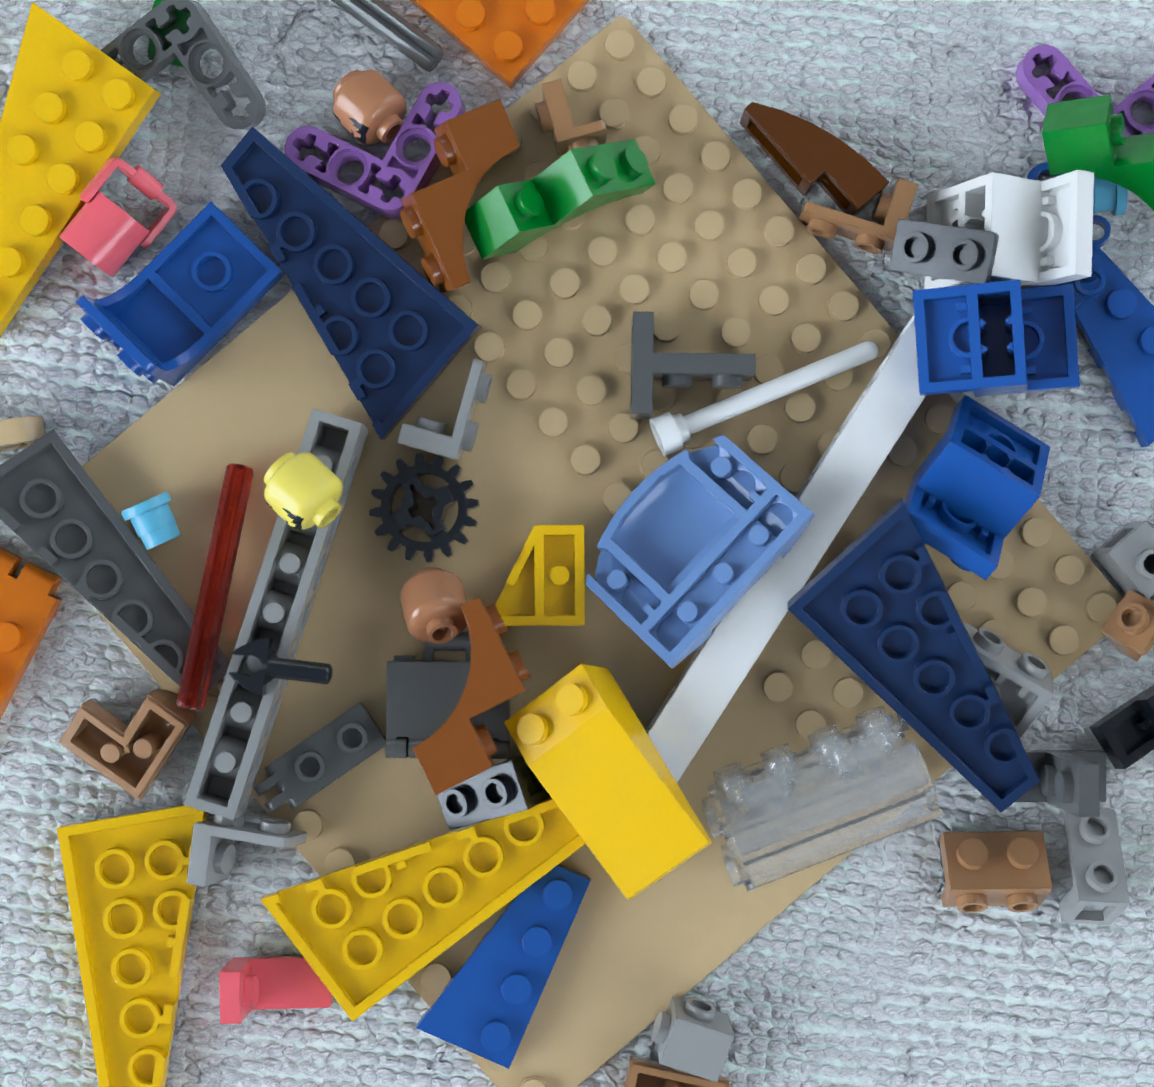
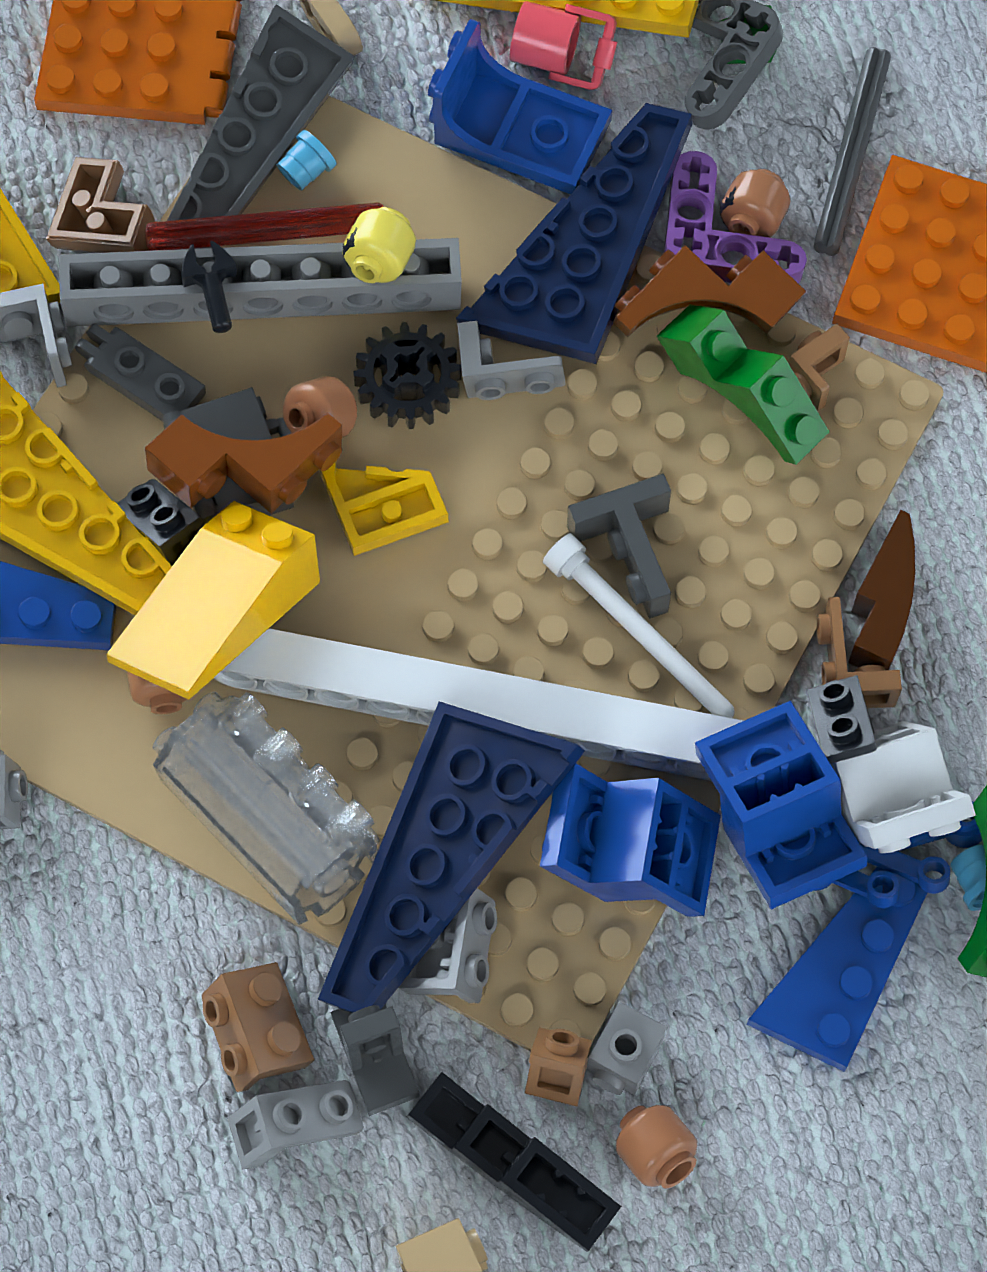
camera: 70 degrees right, 20 degrees down
(693, 545) = (464, 605): medium blue slope -> none

